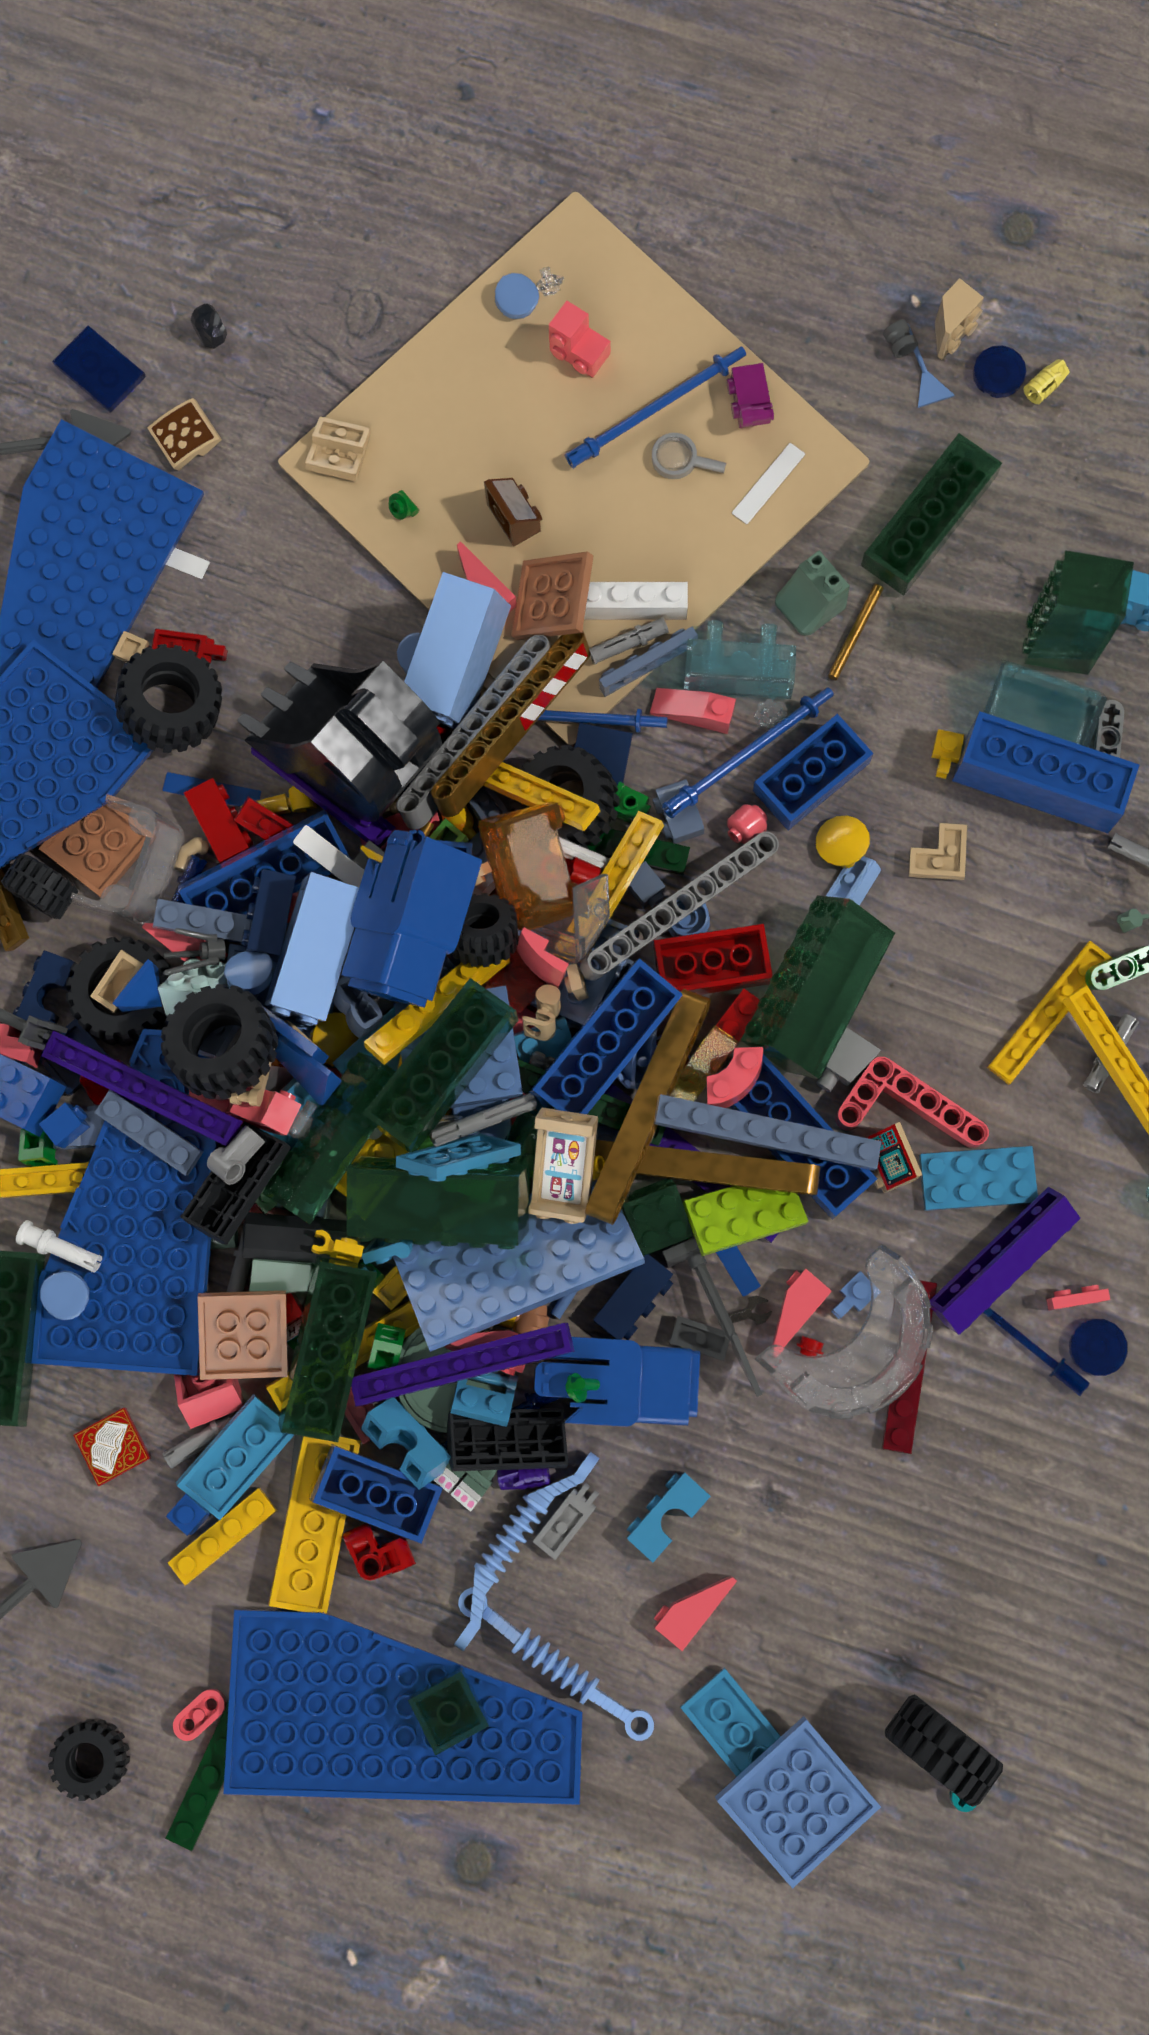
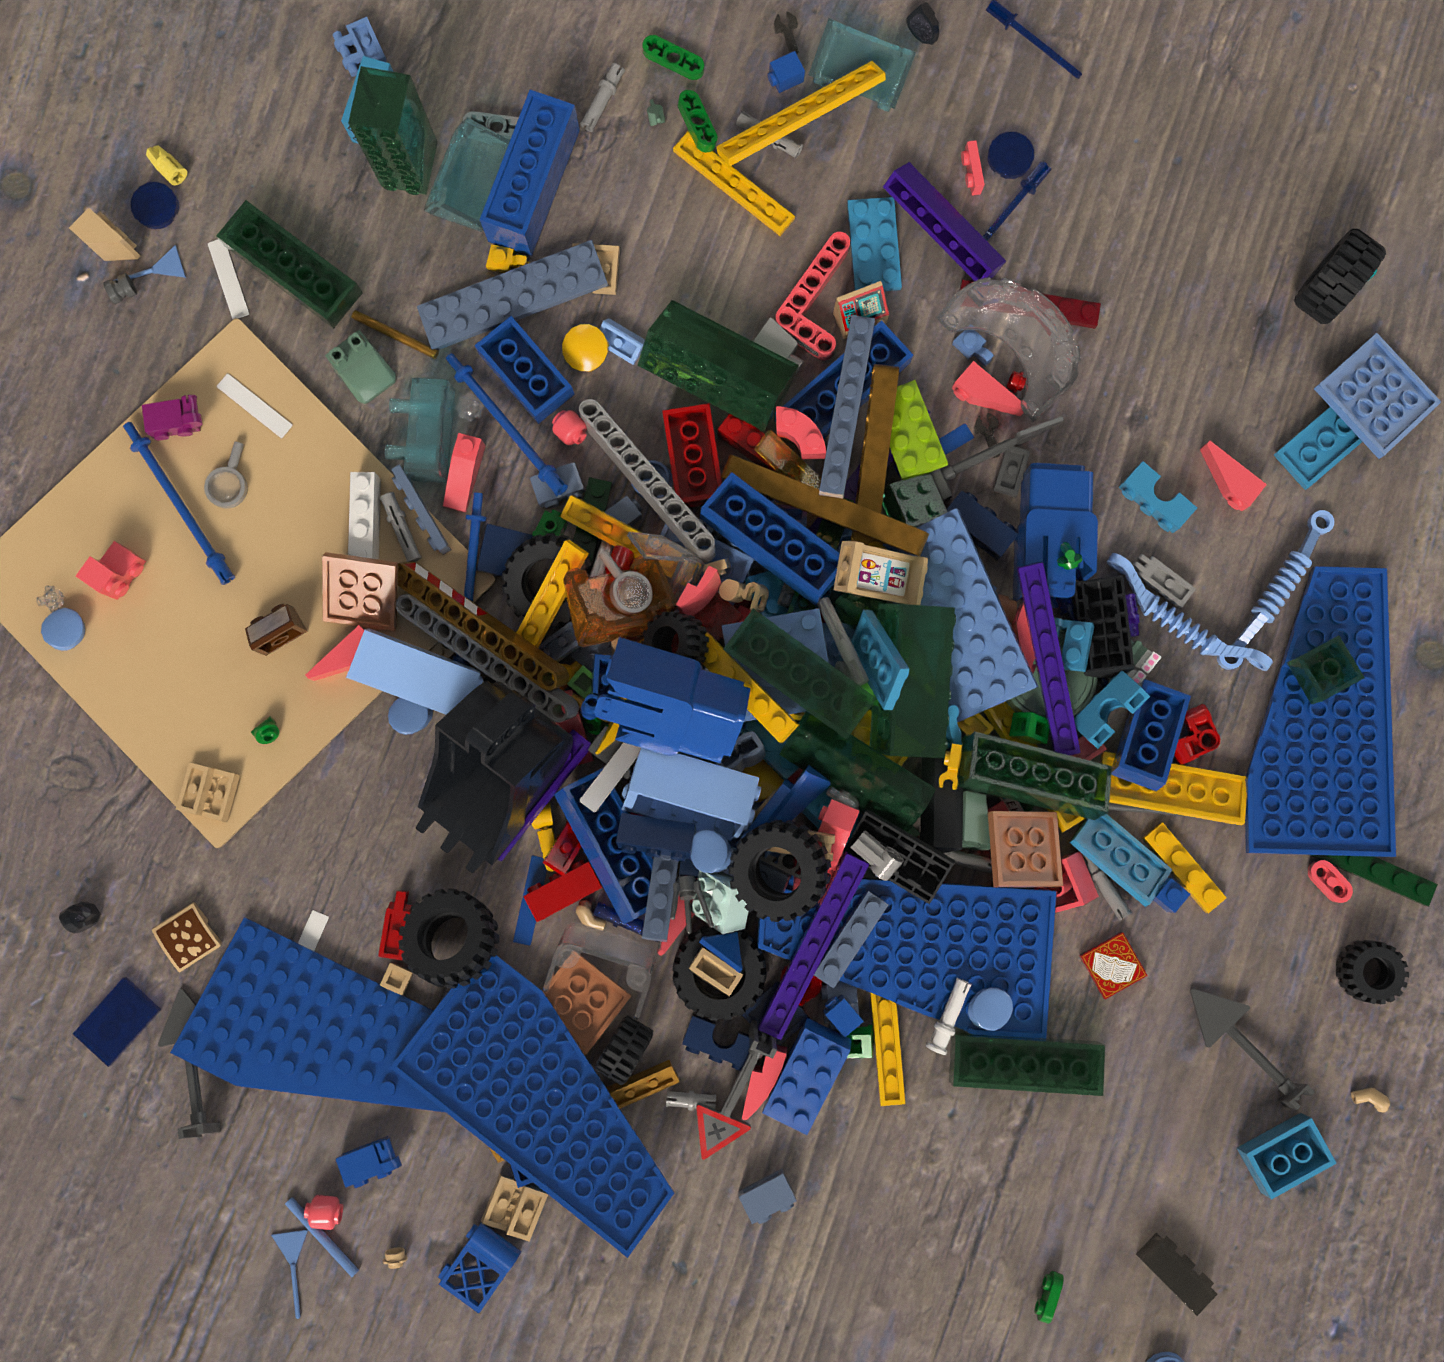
camera: 95 degrees left, 5 degrees up
(544, 880) = (629, 590): none -> piece
(903, 760) = (513, 294): none -> sand blue plate
(912, 453) = (228, 279): none -> white sticker

